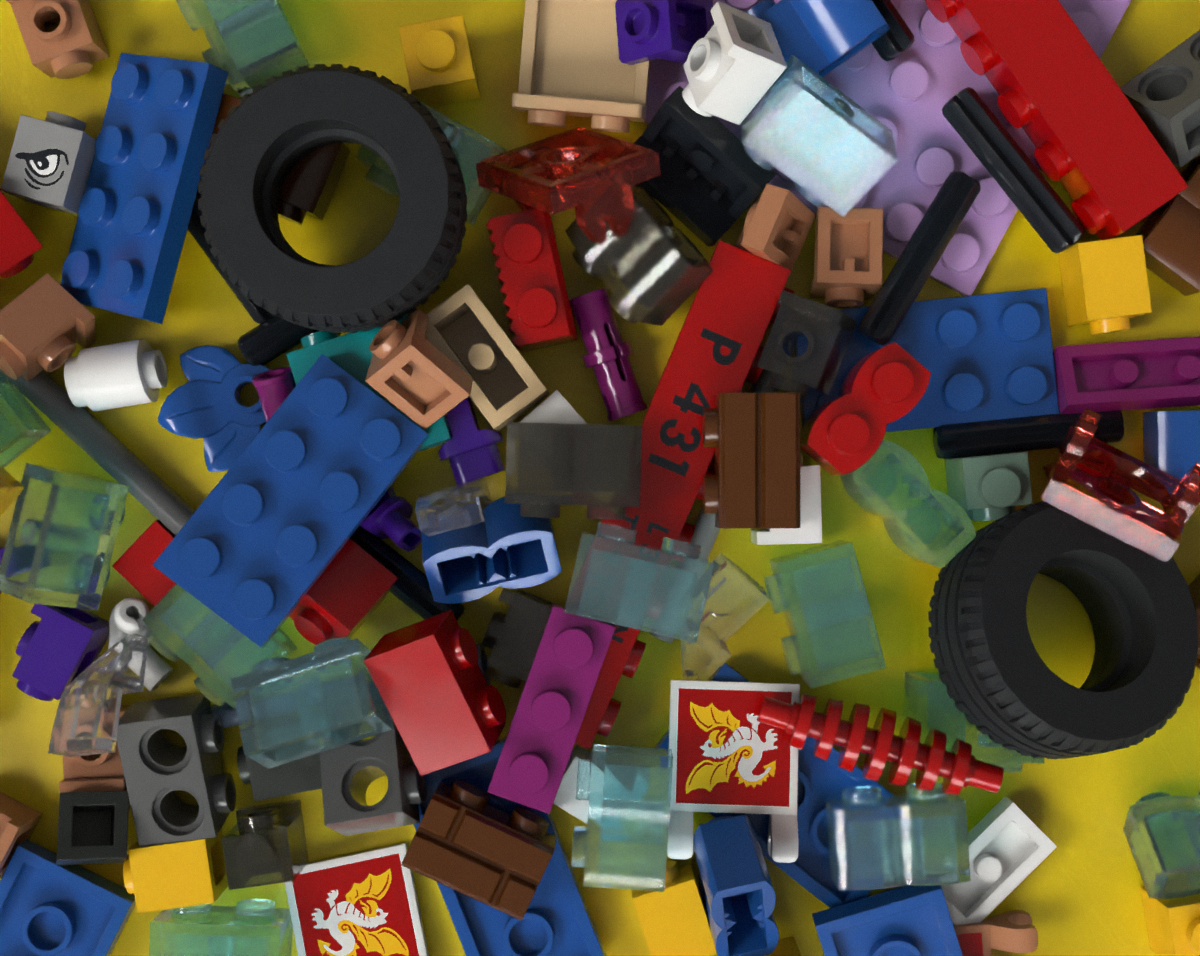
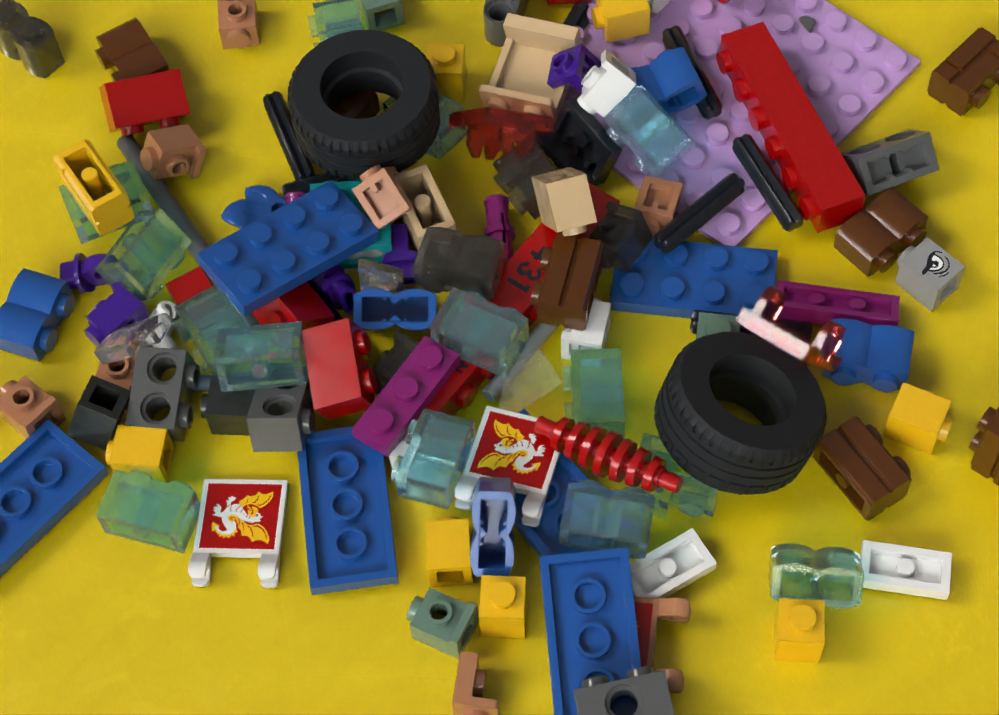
camera: 15 degrees right, 30 degrees down
(50, 162) = (210, 81): light grey brick -> none
(115, 375) = (205, 187): white brick -> none
(142, 184) = (253, 99): blue plate -> none
(265, 845) = (200, 444): clear smoke brick -> none
(481, 848) = (337, 468): reddish brown brick -> none
(531, 280) = (465, 183): red brick -> none
(721, 331) = (564, 200): none -> tan brick
(776, 226) = (617, 176): nougat bracket -> none
(874, 393) = (643, 274): red brick -> none
(916, 517) = (655, 331): clear light blue brick -> none
(1105, 283) = (813, 252): yellow brick -> none

